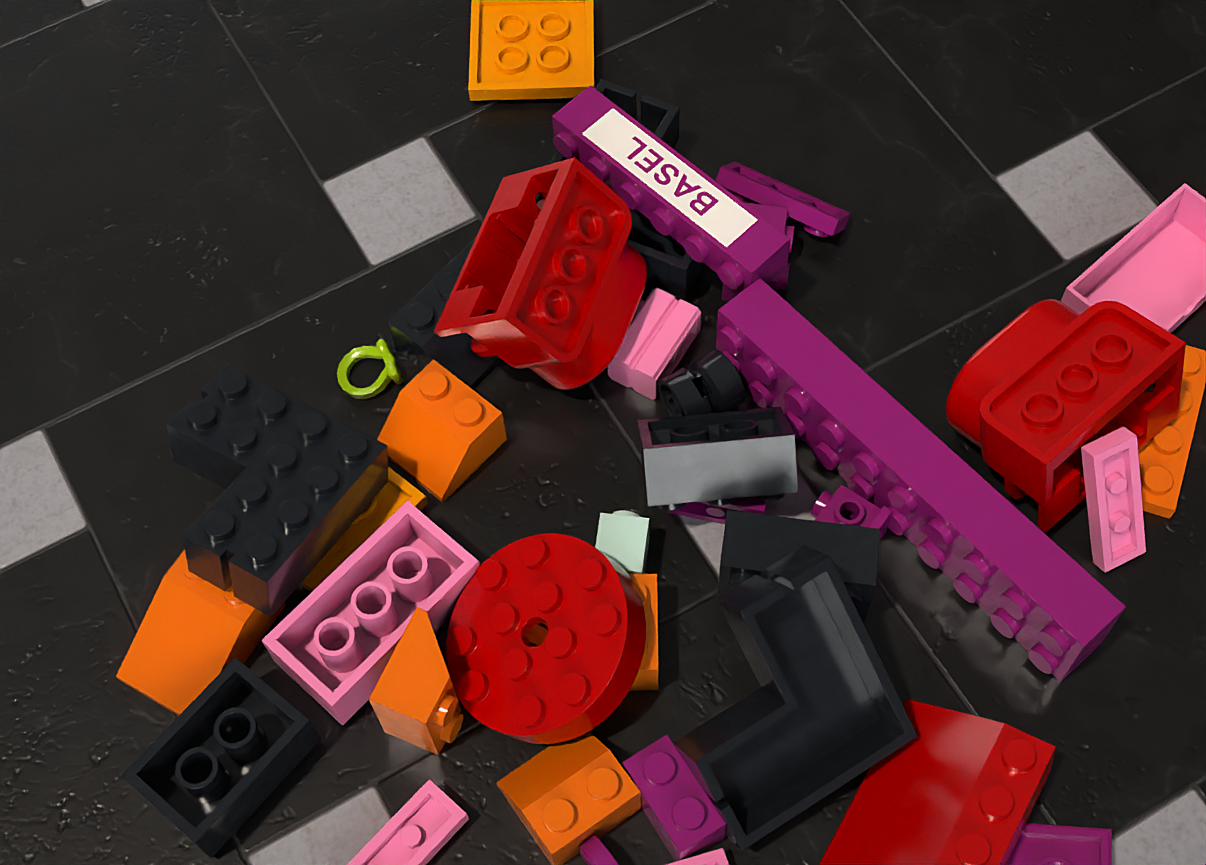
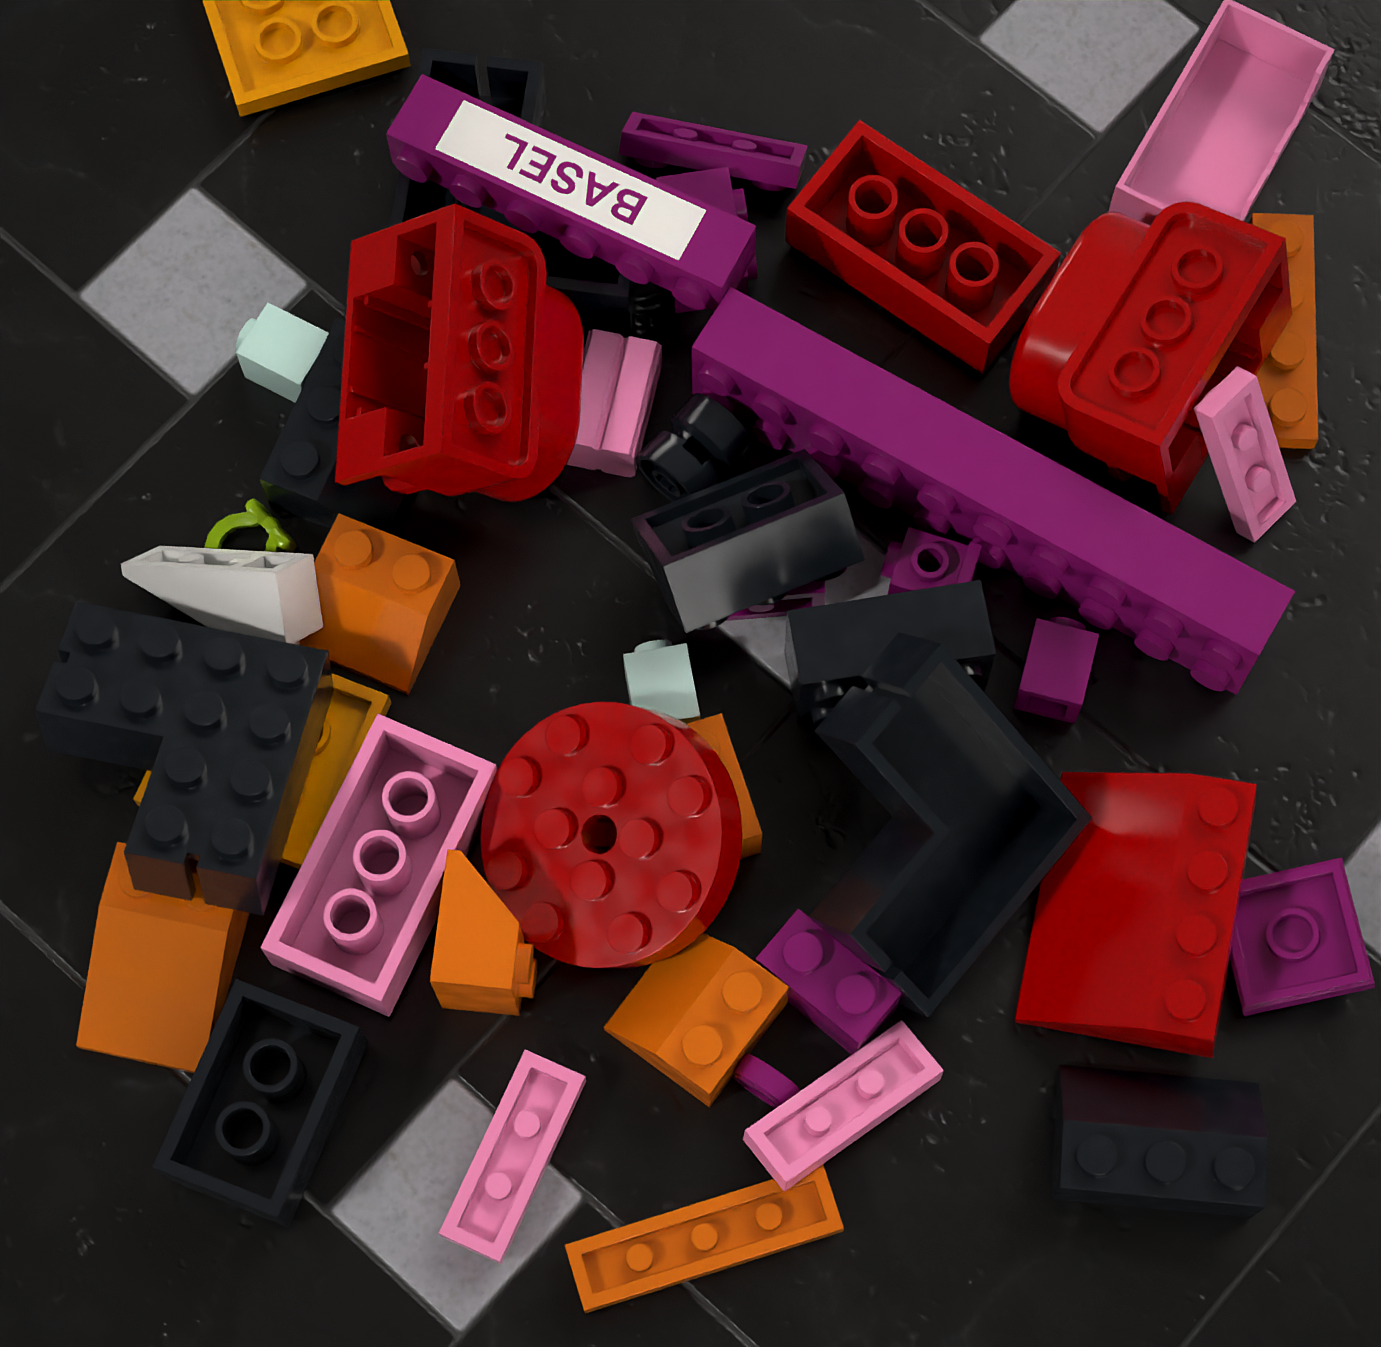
camera: 20 degrees left, 10 degrees up
(346, 392) = (234, 589): none -> white slope
(435, 245) = (279, 350): none -> light aqua brick
(908, 294) = (921, 246): none -> red brick
(923, 619) = (1056, 669): none -> magenta brick

